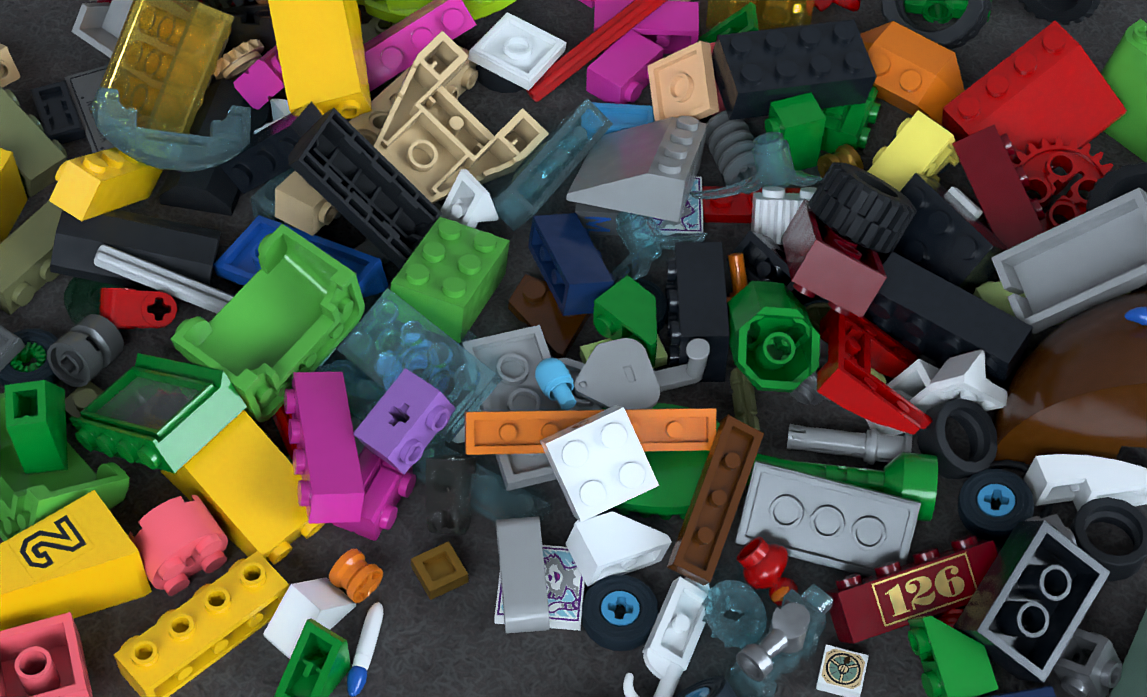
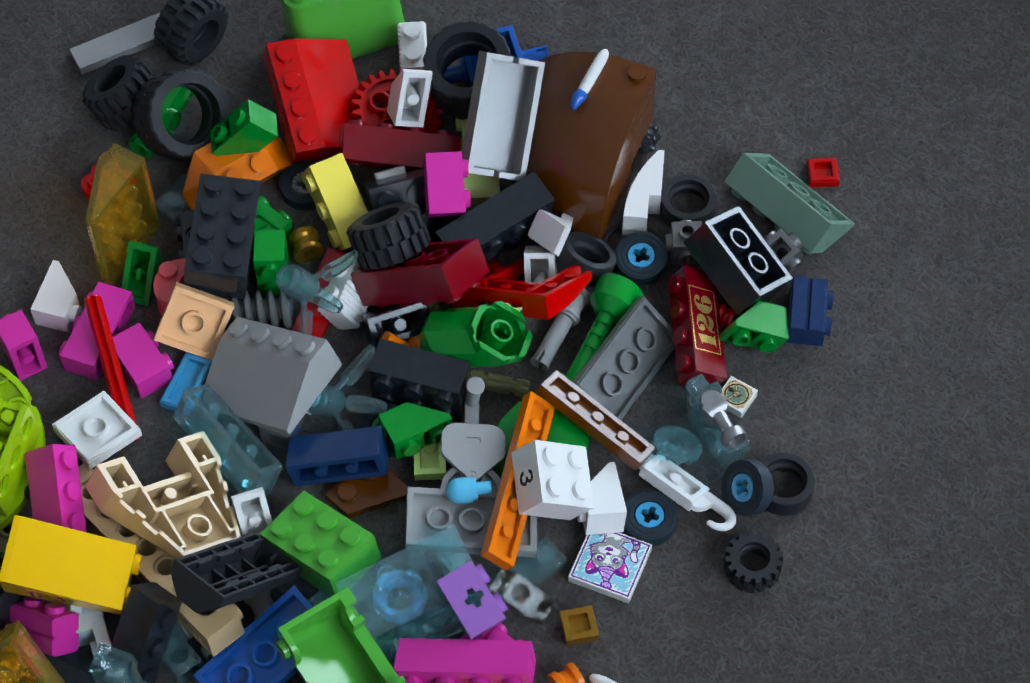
camera: 70 degrees left, 5 degrees up
(522, 575) = (608, 566): light grey beam -> none
(764, 567) = (648, 412): red animal -> none
(937, 45) = (244, 130): none -> green slope
(958, 235) = (445, 184): none -> dark pink brick
(1066, 177) = (409, 98): none -> white slope

